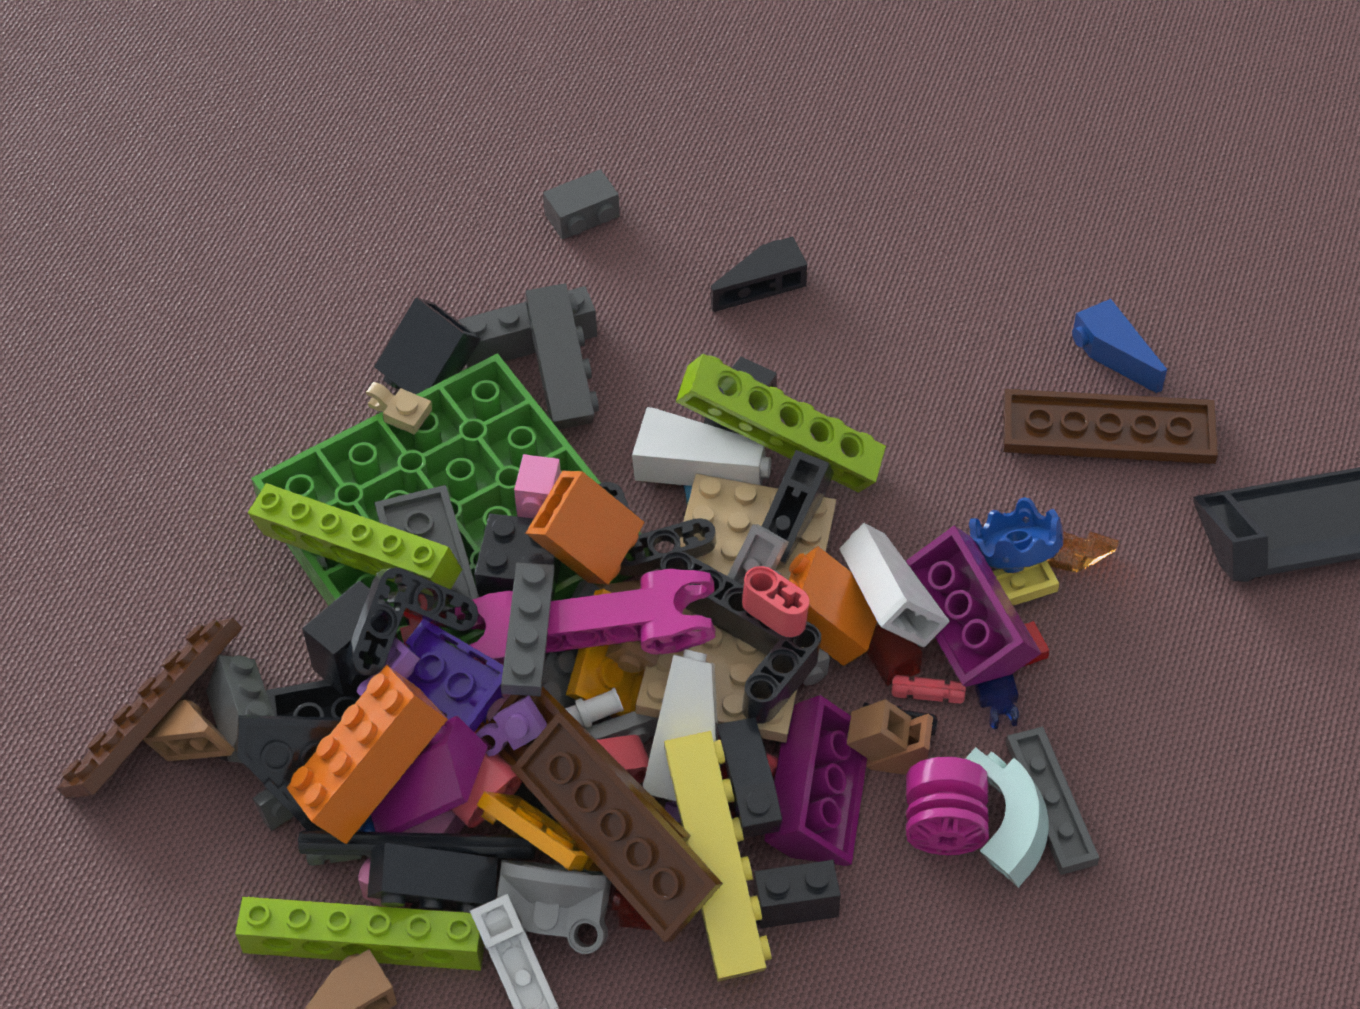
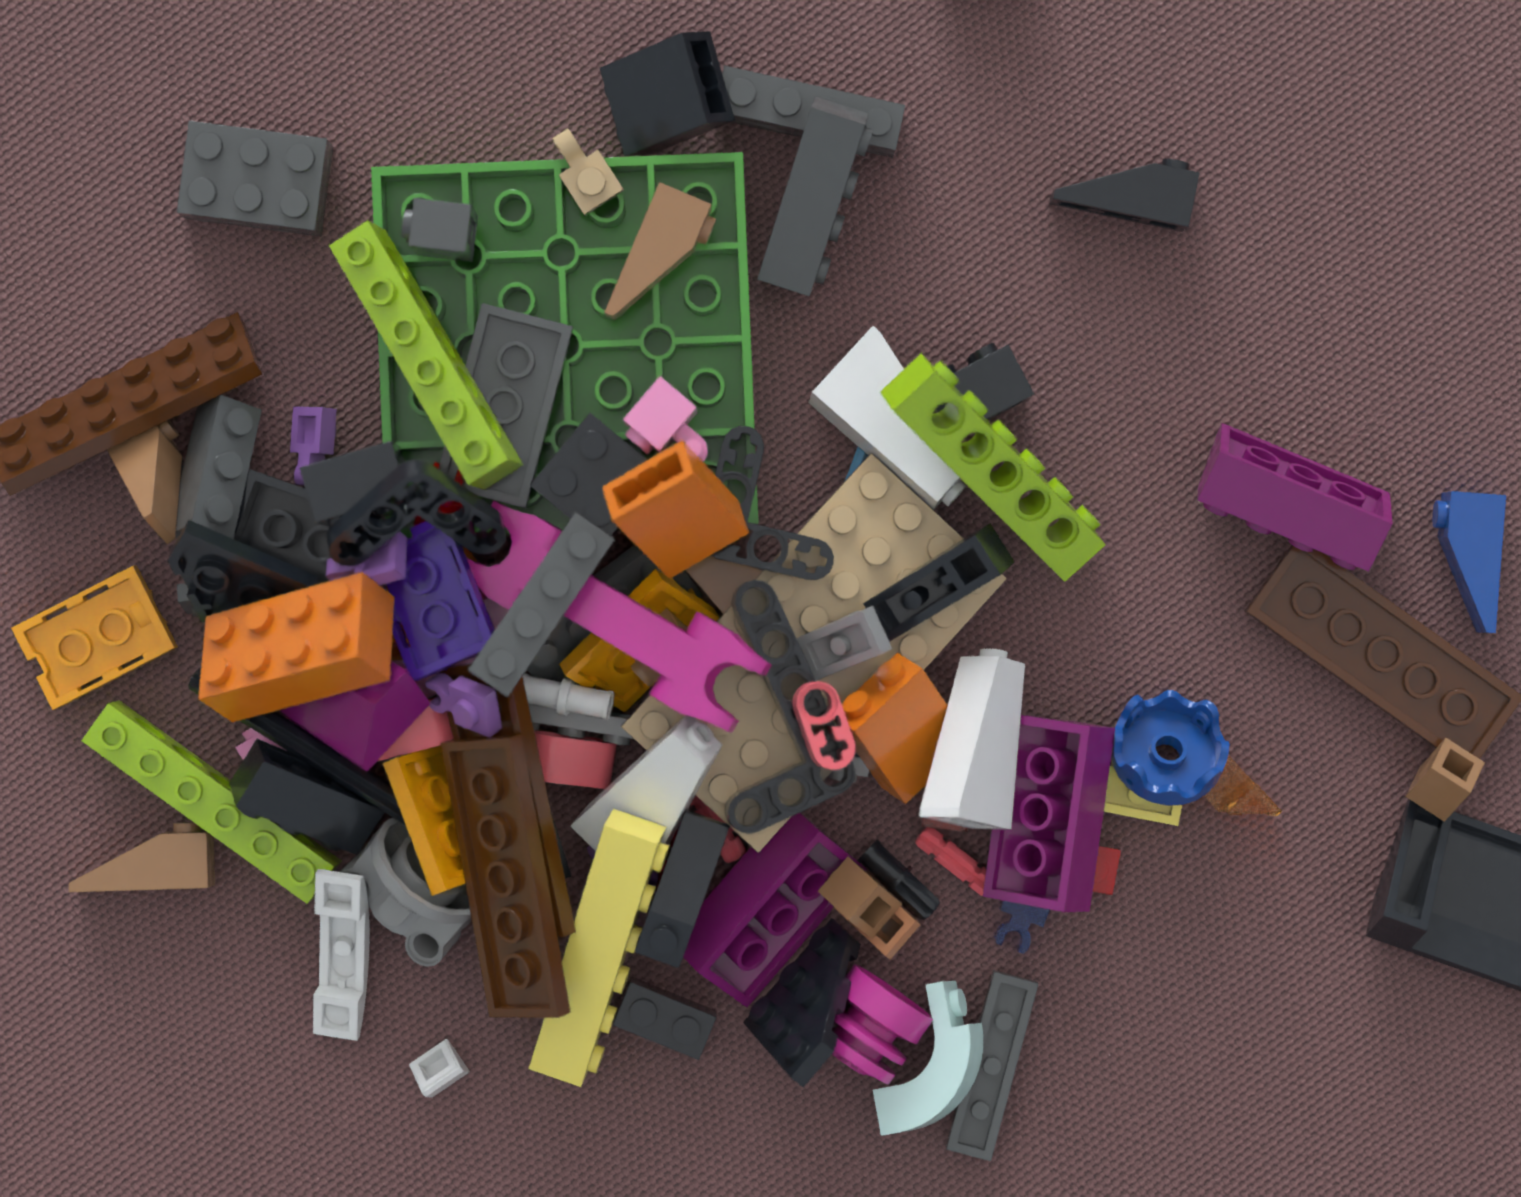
camera: 30 degrees right, 35 degrees up
(173, 538) = (255, 178): none -> dark grey brick
(209, 877) = (95, 637): none -> light orange piece
(296, 663) = (312, 436): none -> medium lavender plate
(321, 466) = (441, 229): none -> dark grey brick
(478, 414) = (663, 242): none -> medium nougat slope
(892, 818) = (800, 1009): none -> black plate
(985, 363) = (1295, 498): none -> magenta slope
(1205, 465) = (1445, 779): none -> medium nougat brick

